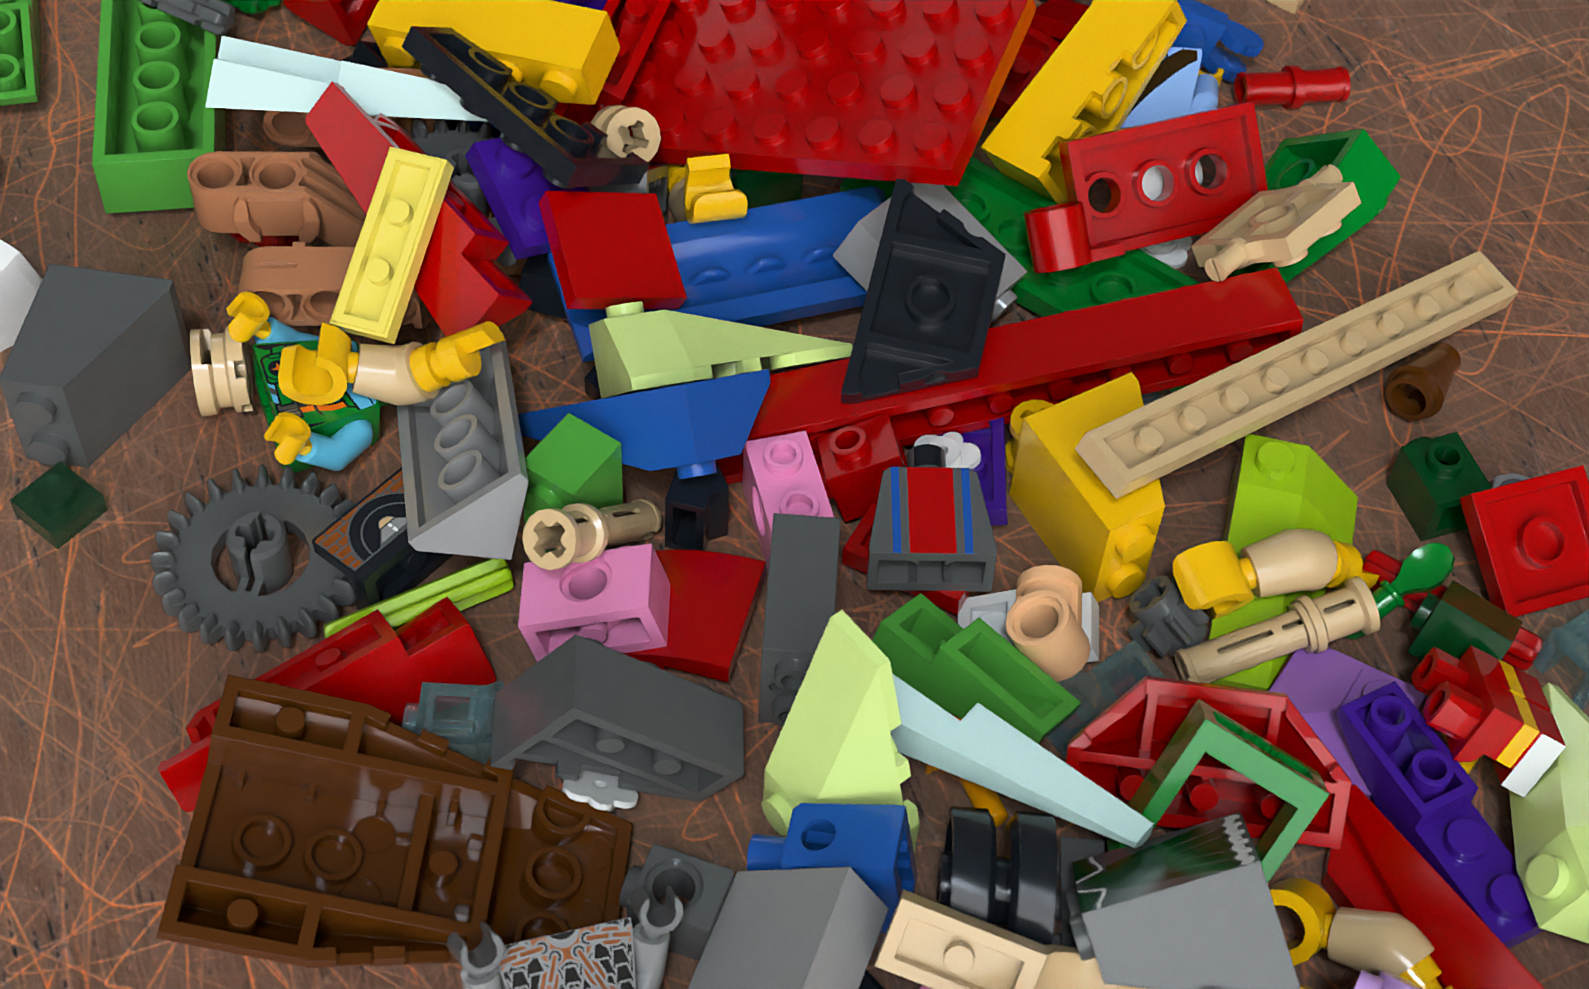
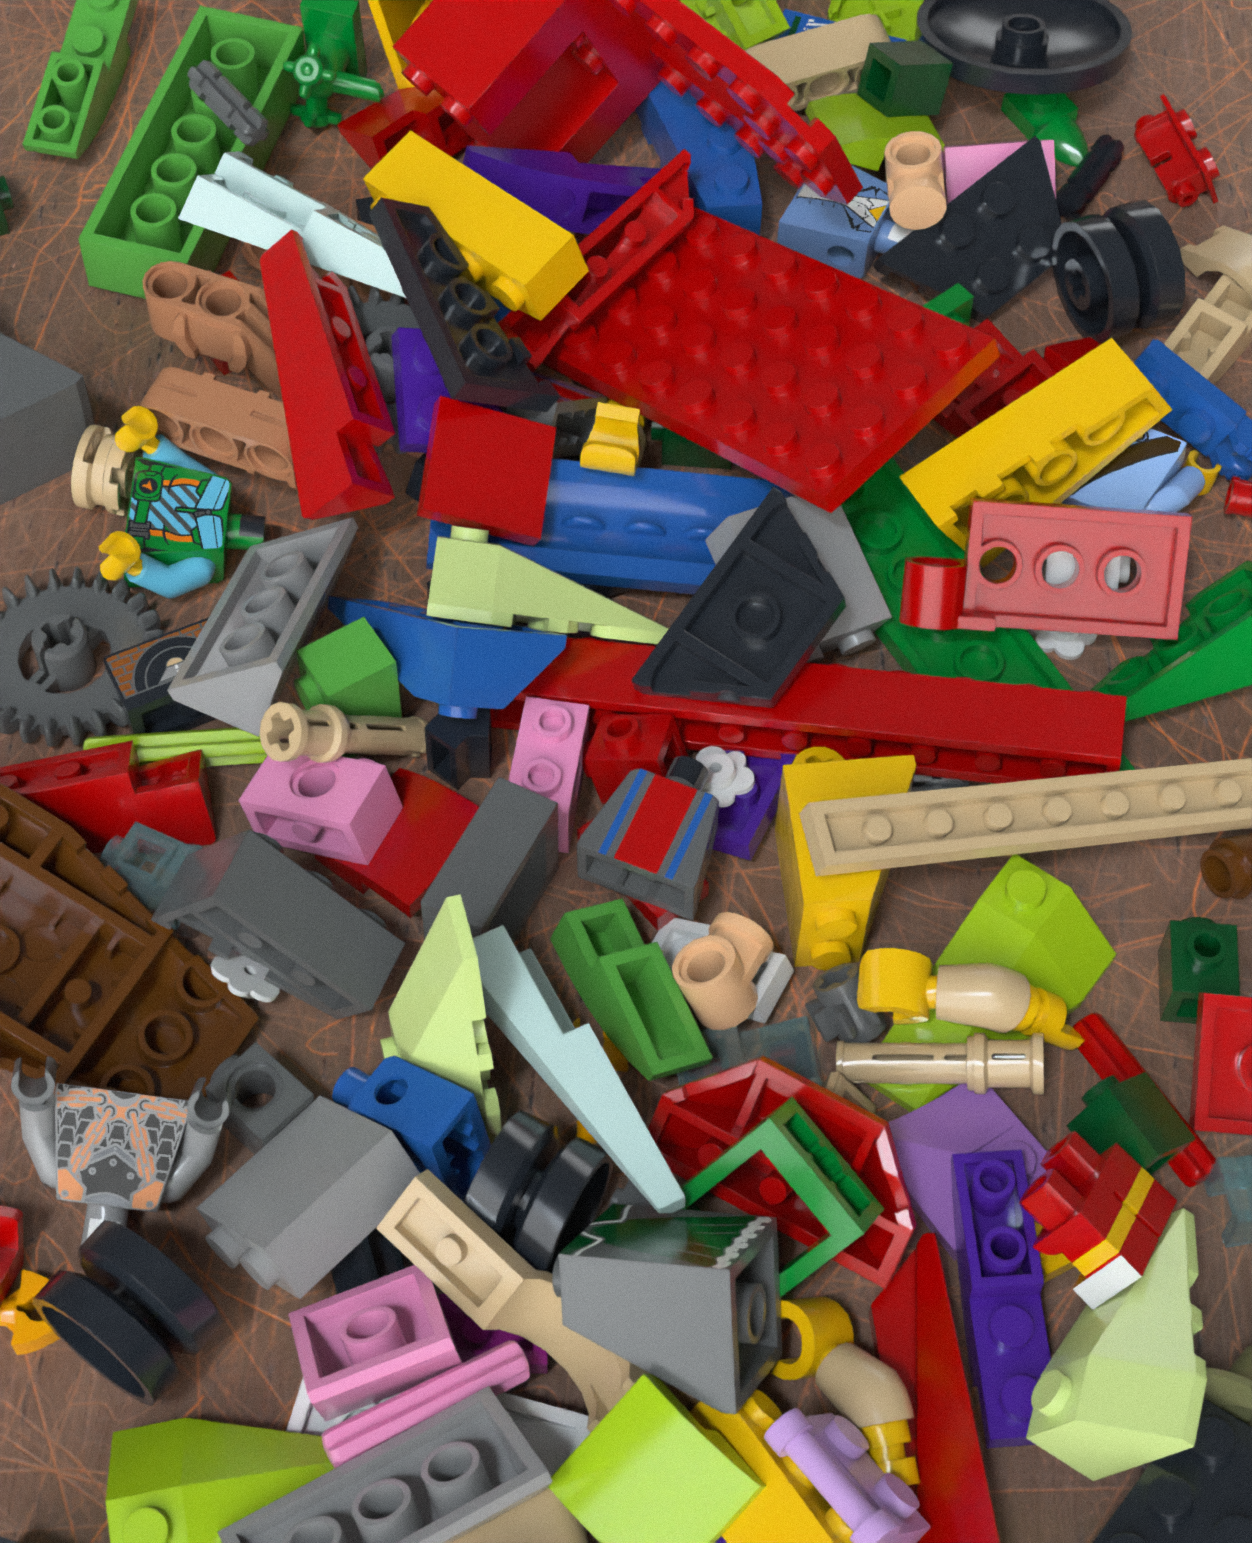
camera: 25 degrees right, 5 degrees up
(382, 372) = (234, 522): yellow piece -> none
(392, 245) = (278, 404): light yellow tile -> none
(615, 122) = (554, 350): tan wheel -> none
(1277, 225) = (1154, 652): tan plate -> none
(1420, 572) = (1121, 1052): green piece -> none

